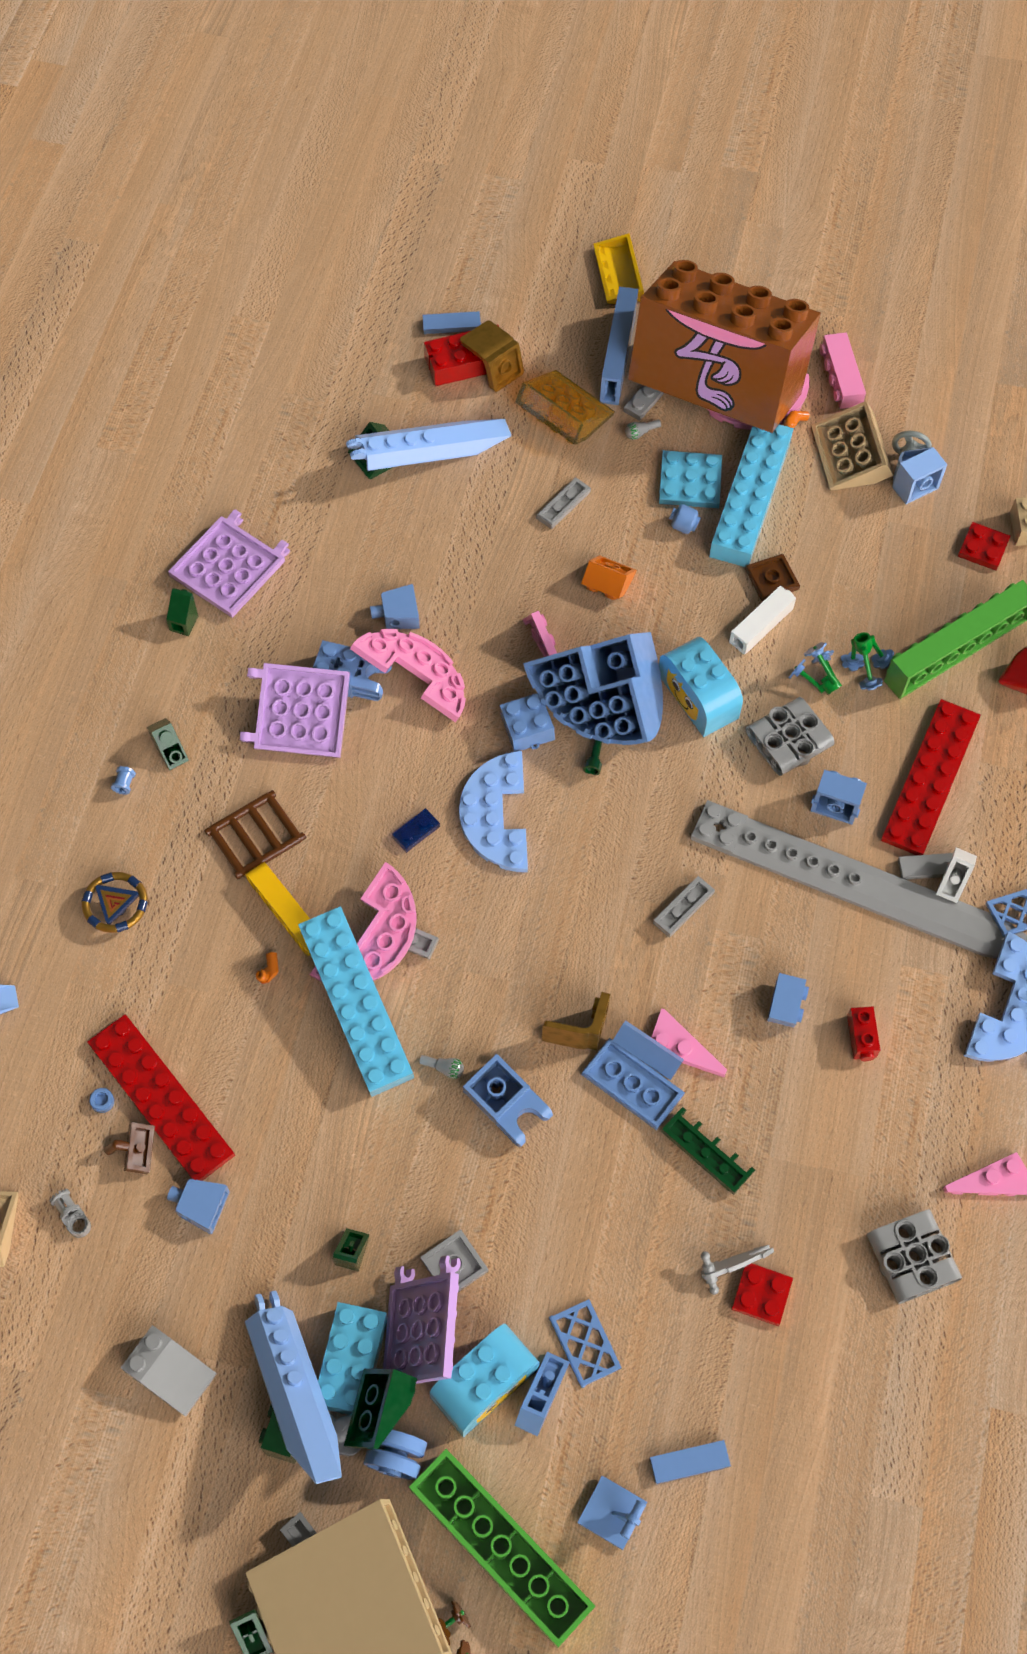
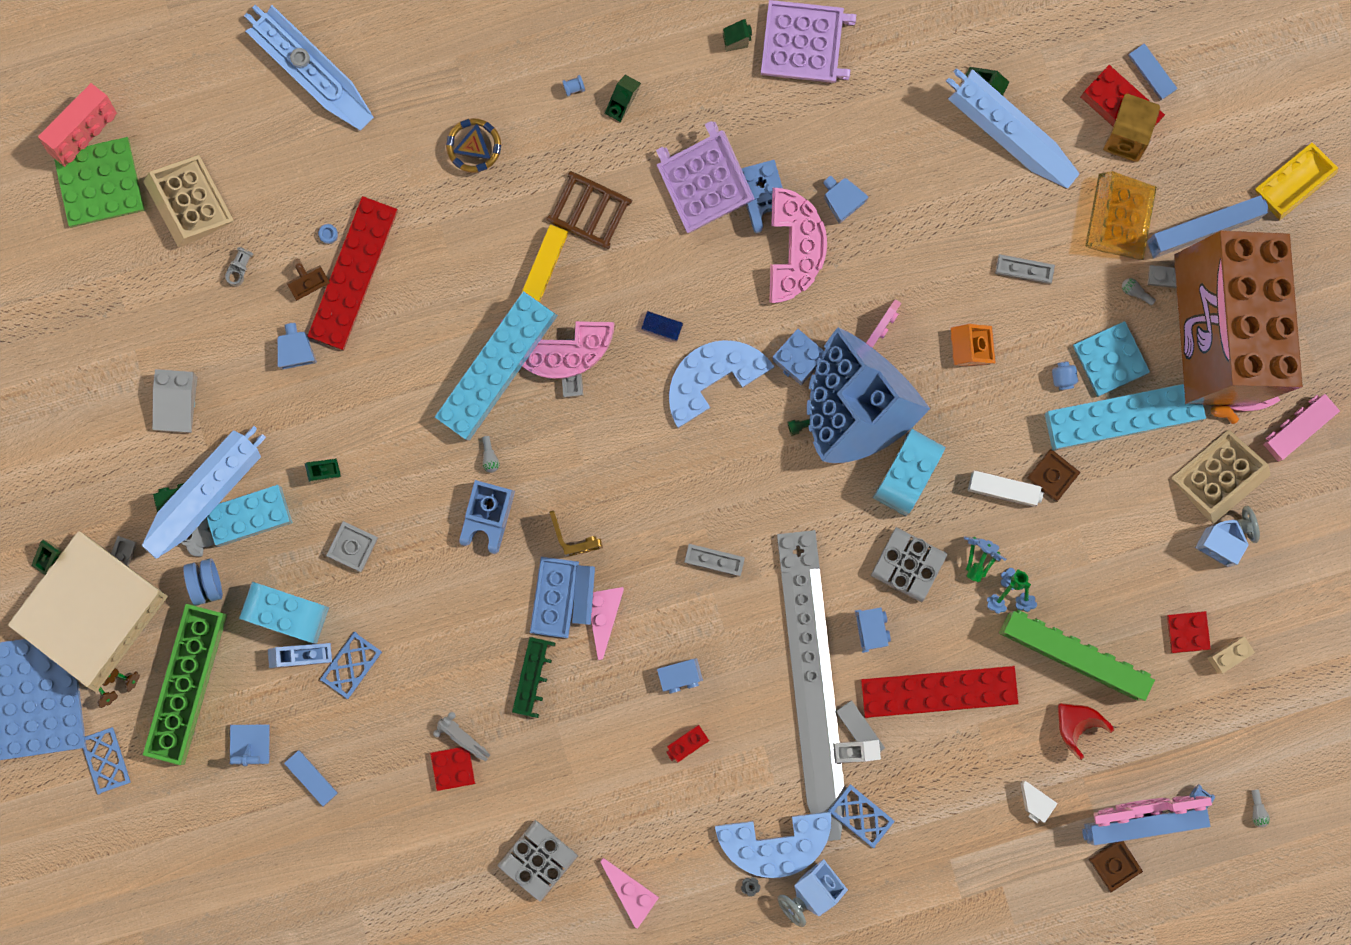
camera: 55 degrees right, 20 degrees up
(270, 971) = (488, 289): orange arm -> none
(379, 1406) = (221, 554): dark green slope -> none
(422, 1323) = (291, 550): lavender plate -> none

